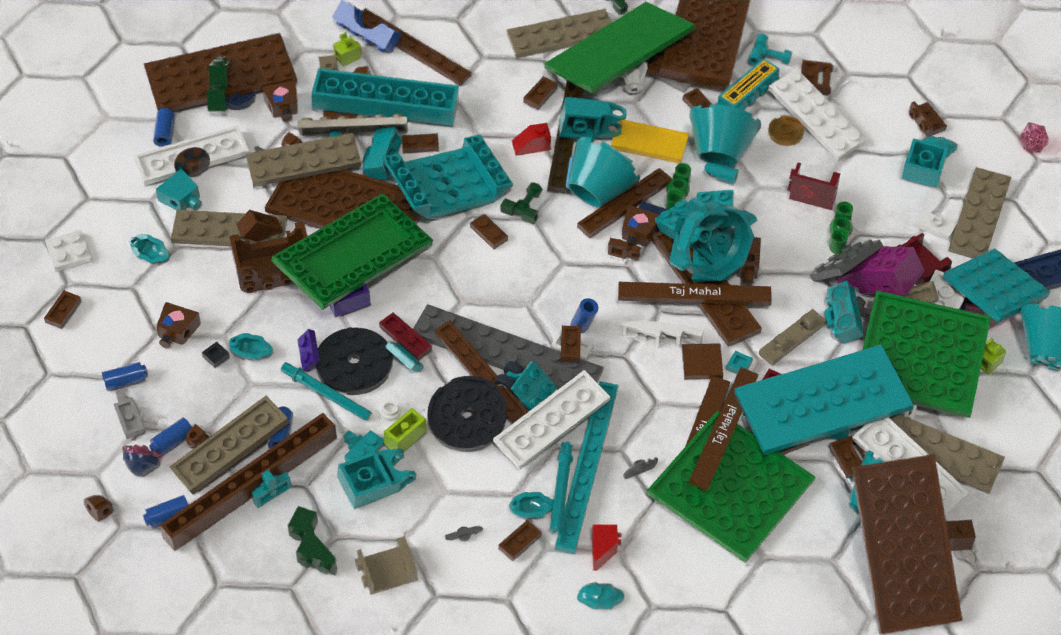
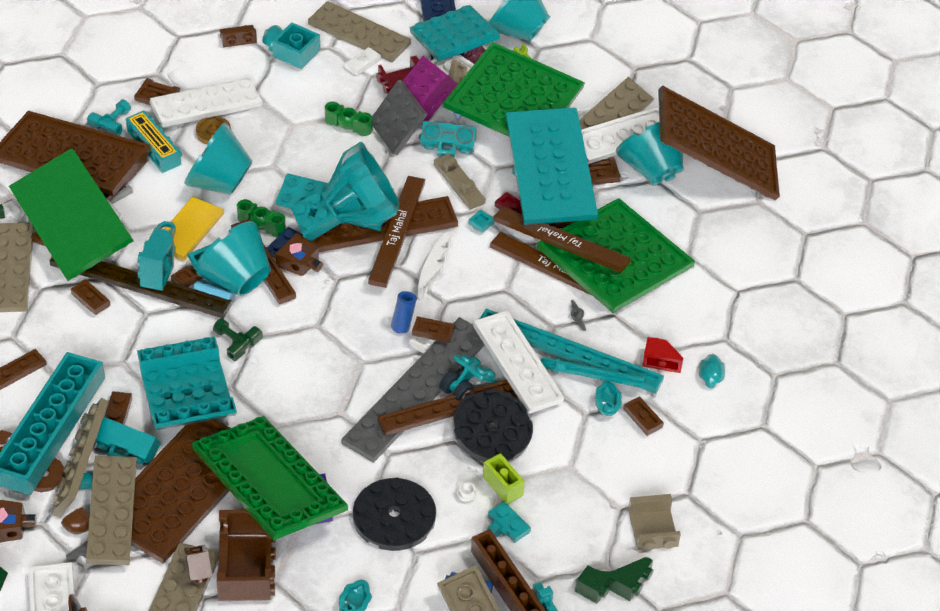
camera: 80 degrees left, 5 degrees down
(302, 377) = (402, 562): teal axle -> none
(308, 350) = (374, 547): dark purple plate -> none
(373, 477) = (552, 516): teal brick -> none
(404, 356) = (405, 467): teal tile -> none
(405, 336) = (377, 463): dark red plate -> none
(464, 533) = (625, 458): dark grey piece -> none
(489, 231) = (260, 374): reddish brown plate -> none
(532, 140) = (154, 314): red slope -> none
(620, 249) = (321, 274): reddish brown plate -> none
(696, 98) = (158, 180): reddish brown plate -> none
(702, 361) = (469, 247): reddish brown tile -> none
(722, 172) = (252, 183): teal hinge -> none
(813, 190) = (297, 130): dark red panel -> none

